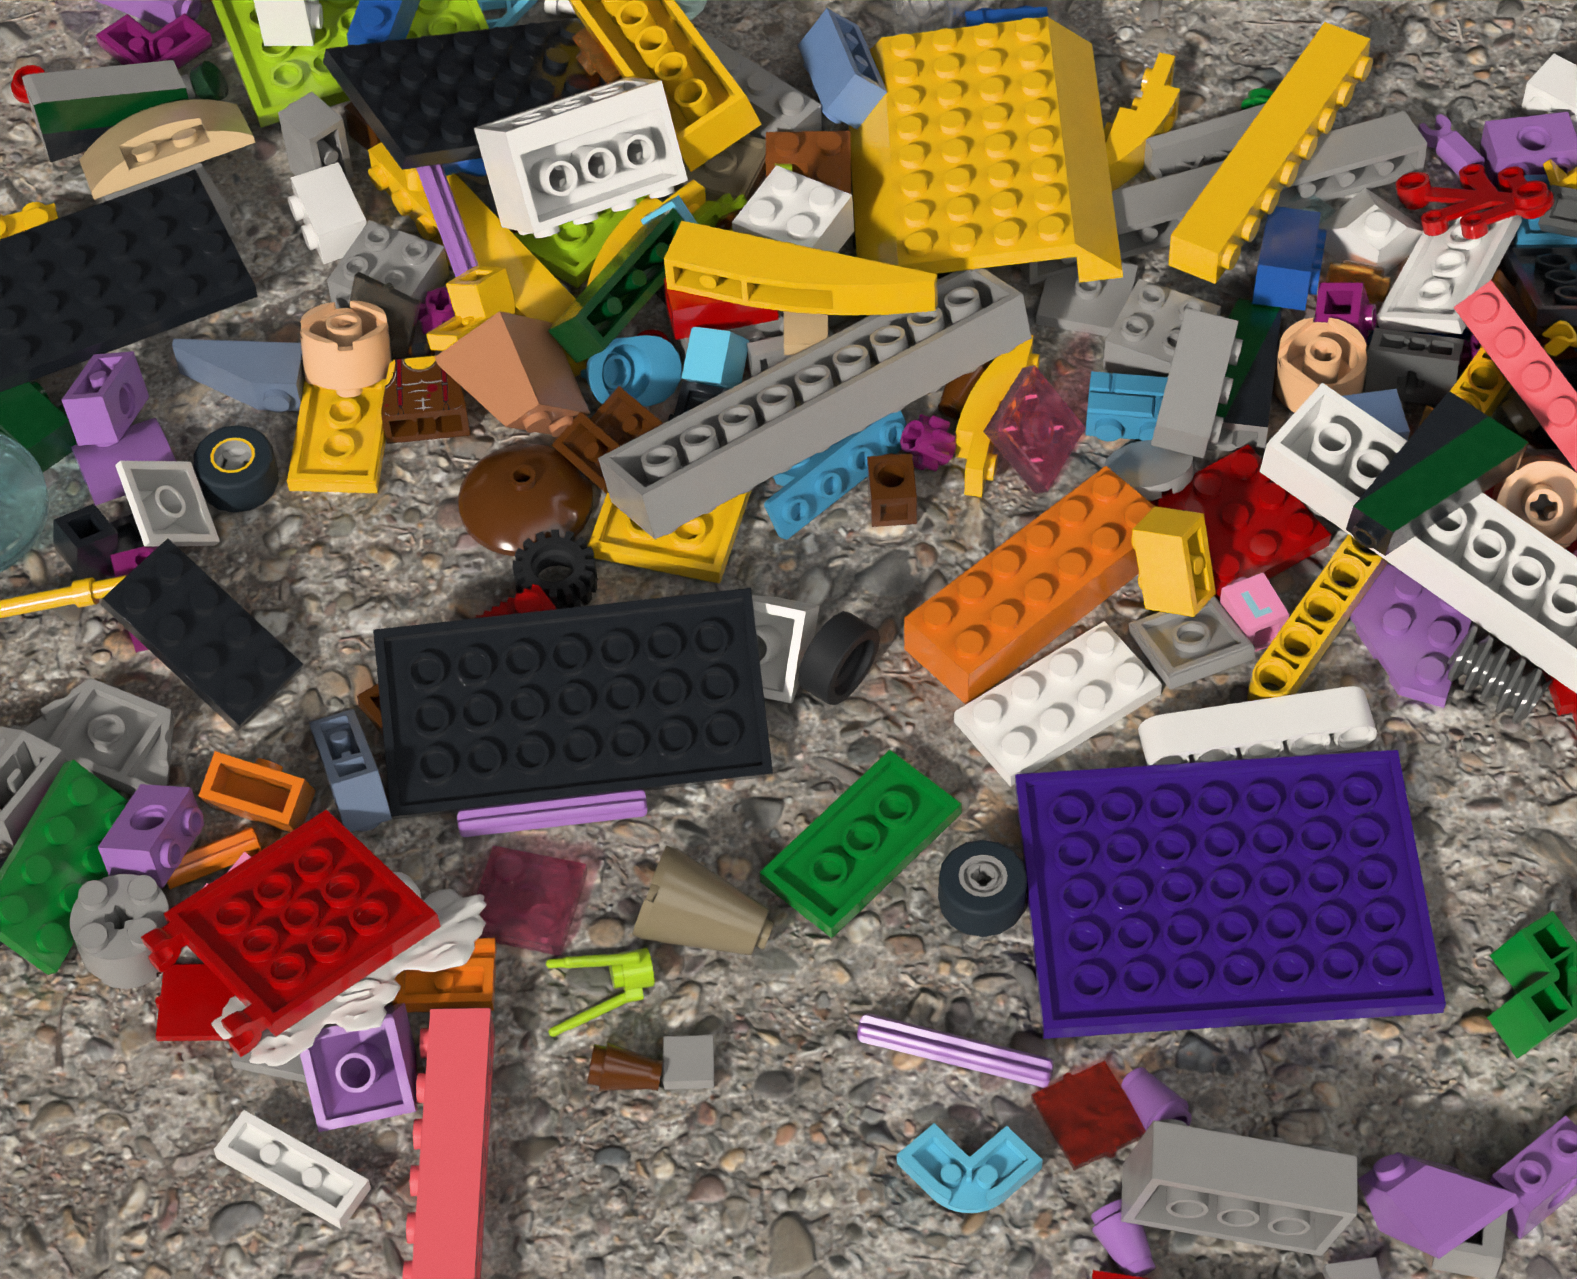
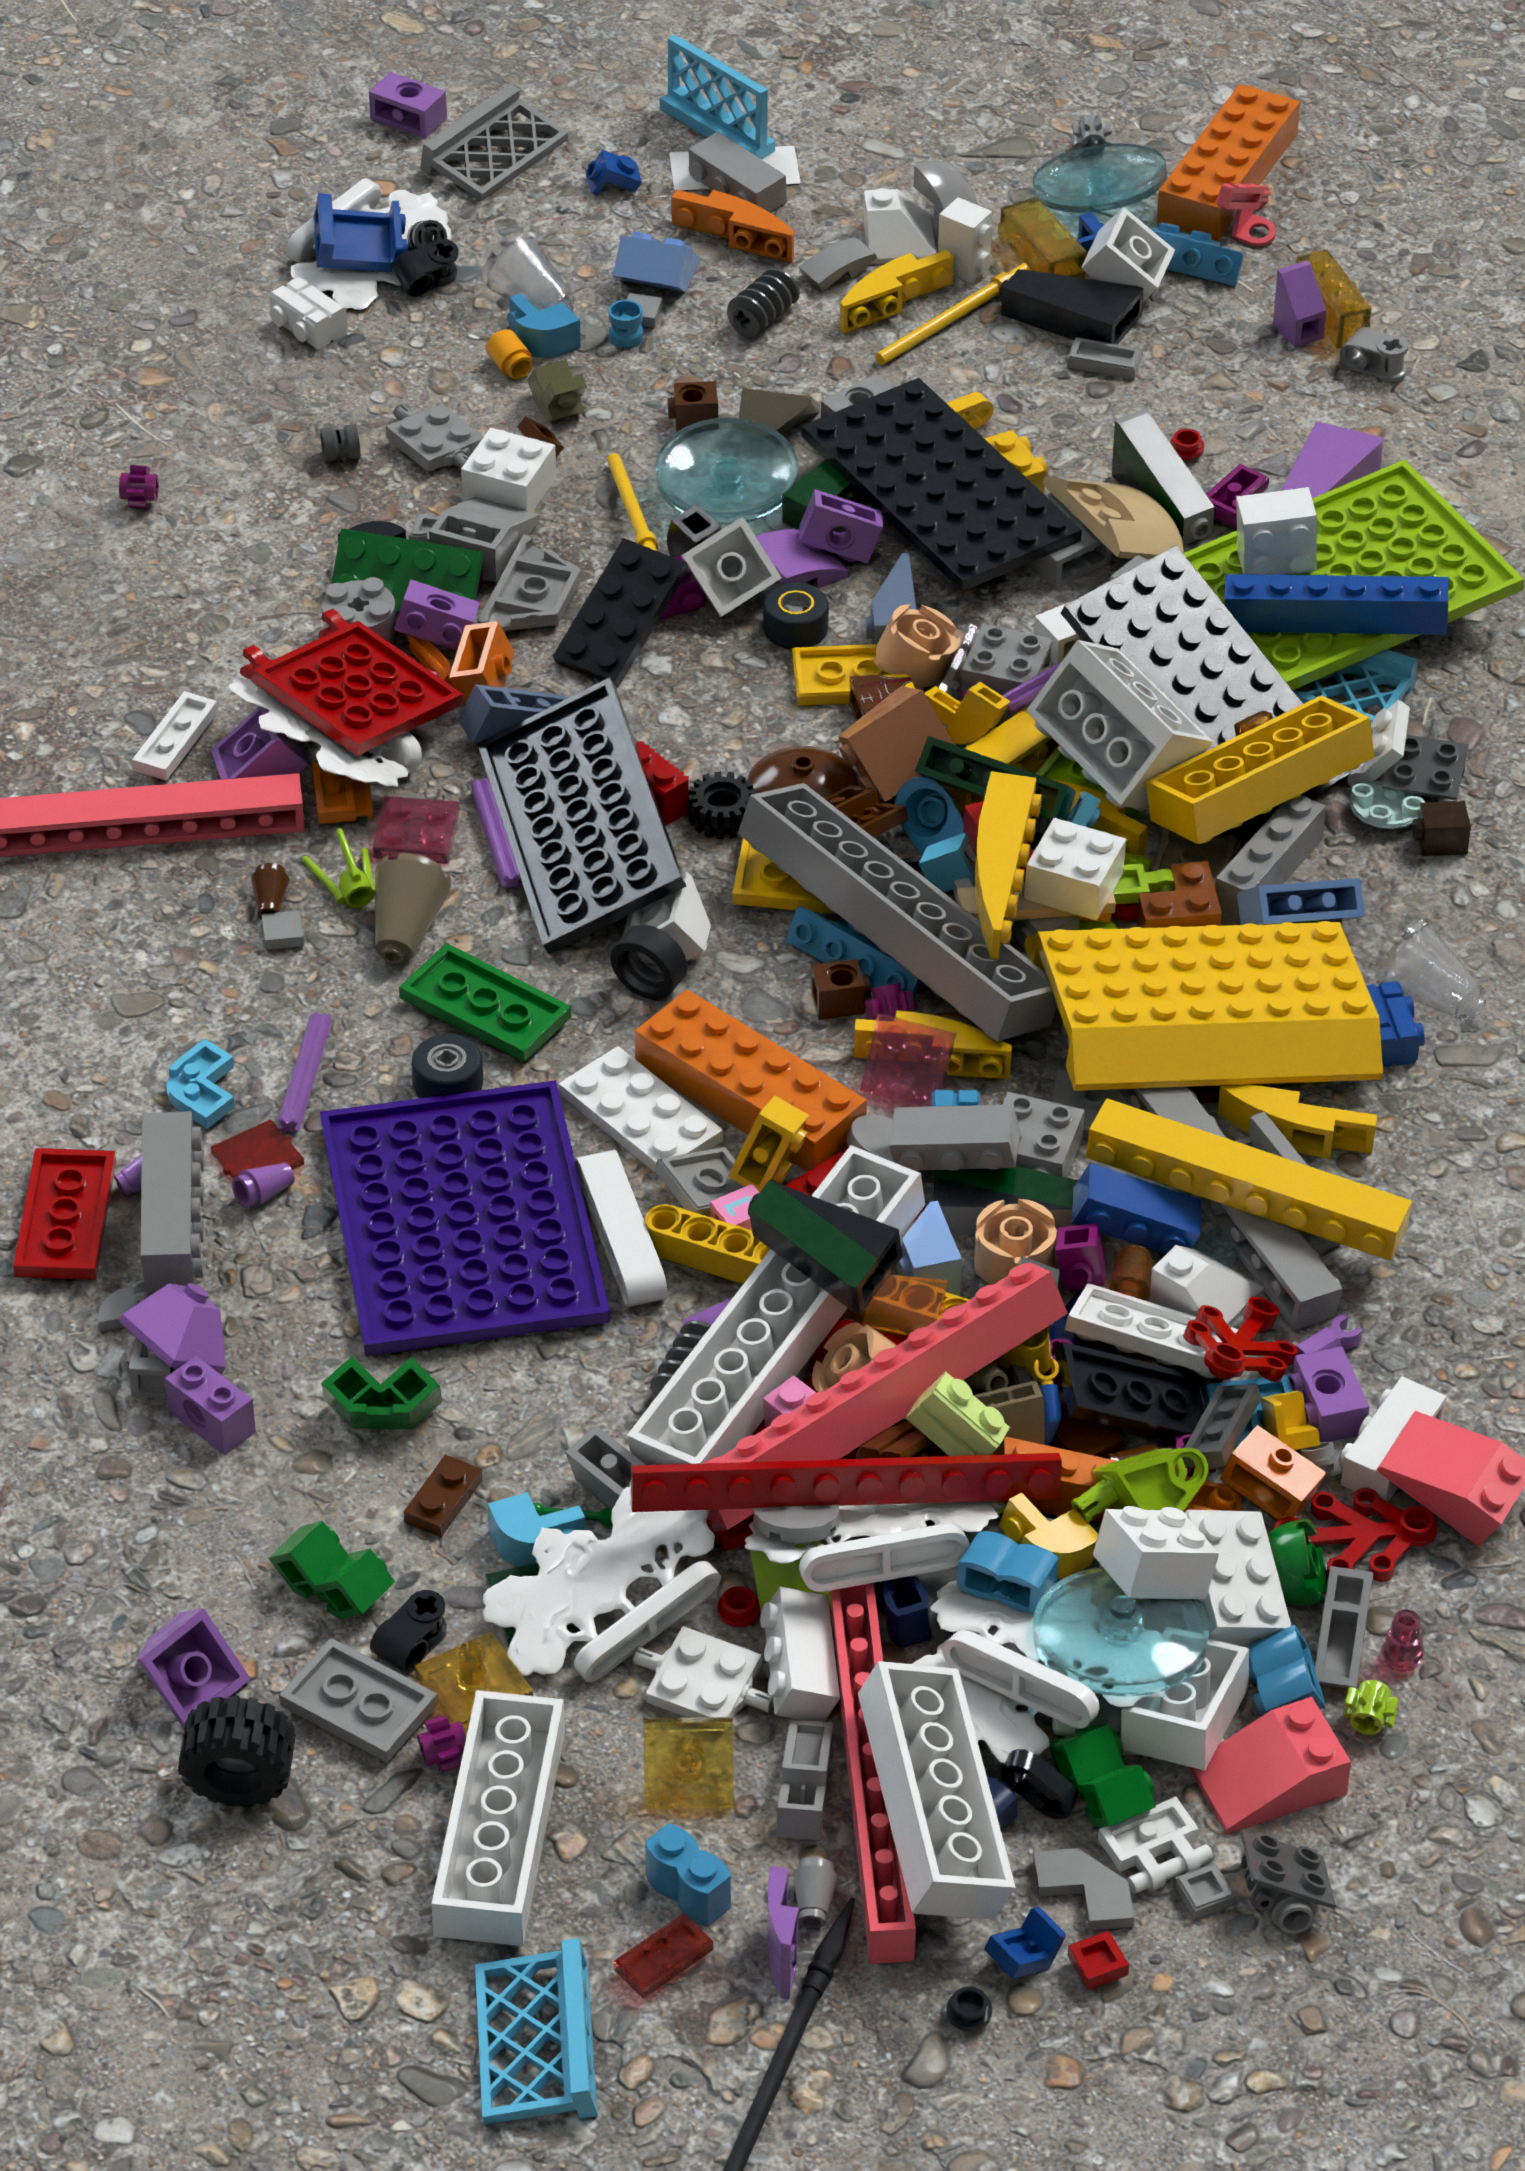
camera: 80 degrees right, 10 degrees down
(208, 81) = (1205, 533): clear green tile -> none

